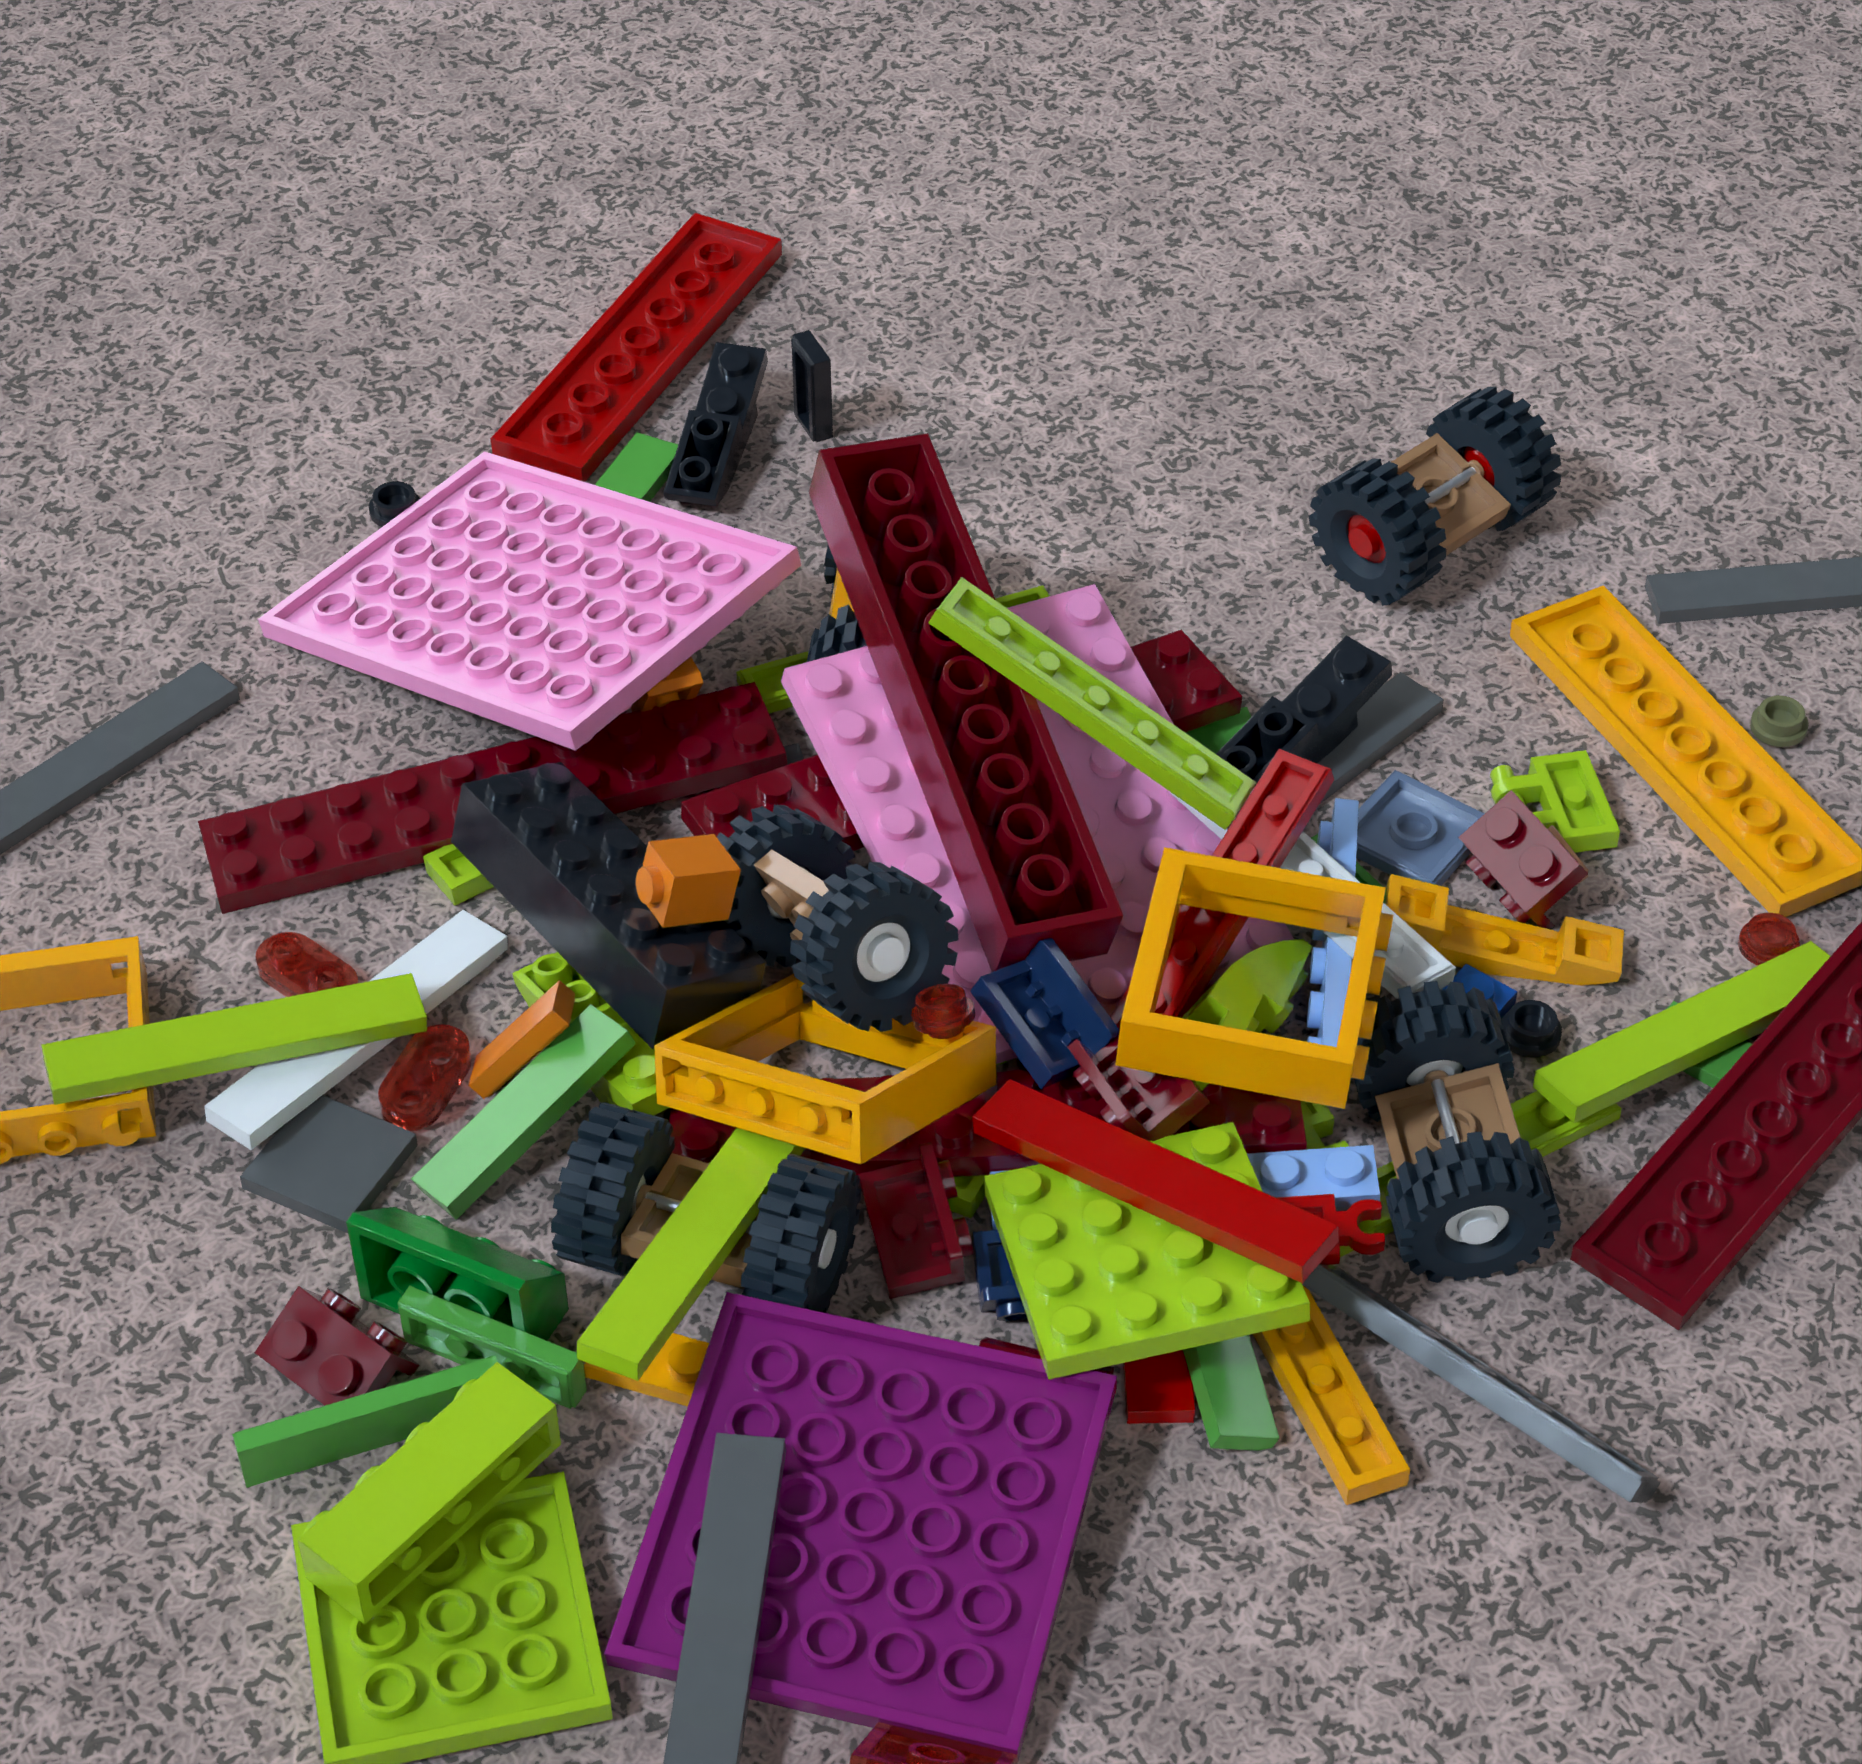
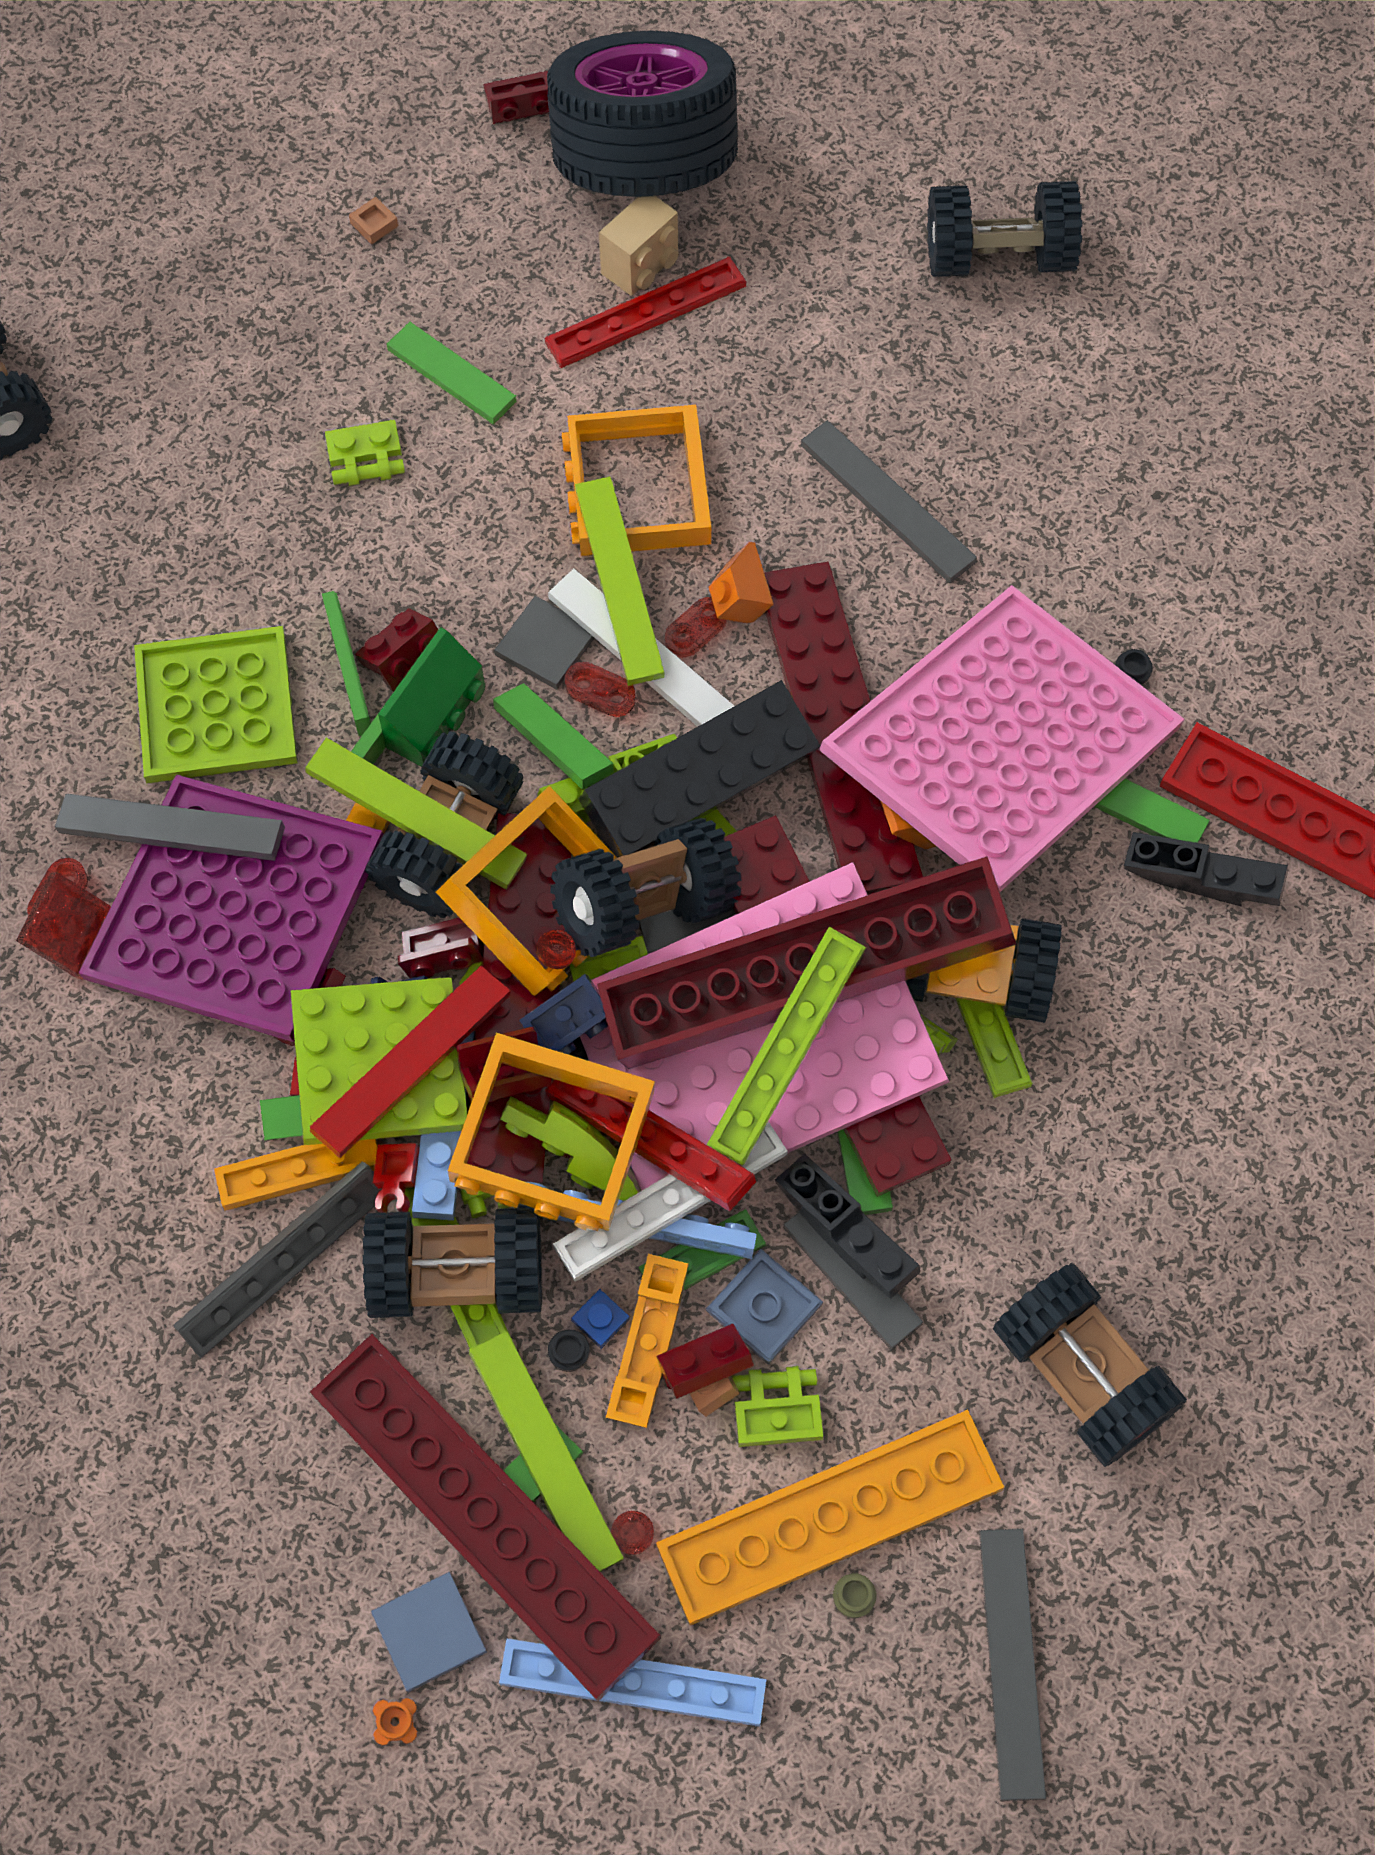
camera: 95 degrees right, 20 degrees up
(237, 909) = (741, 588): none -> orange slope
(429, 1492) = (277, 683): lime brick -> none
(522, 1040) = (605, 733): orange tile -> none
(688, 880) = (668, 799): orange brick -> none
(812, 386) = (1236, 929): black tile -> none

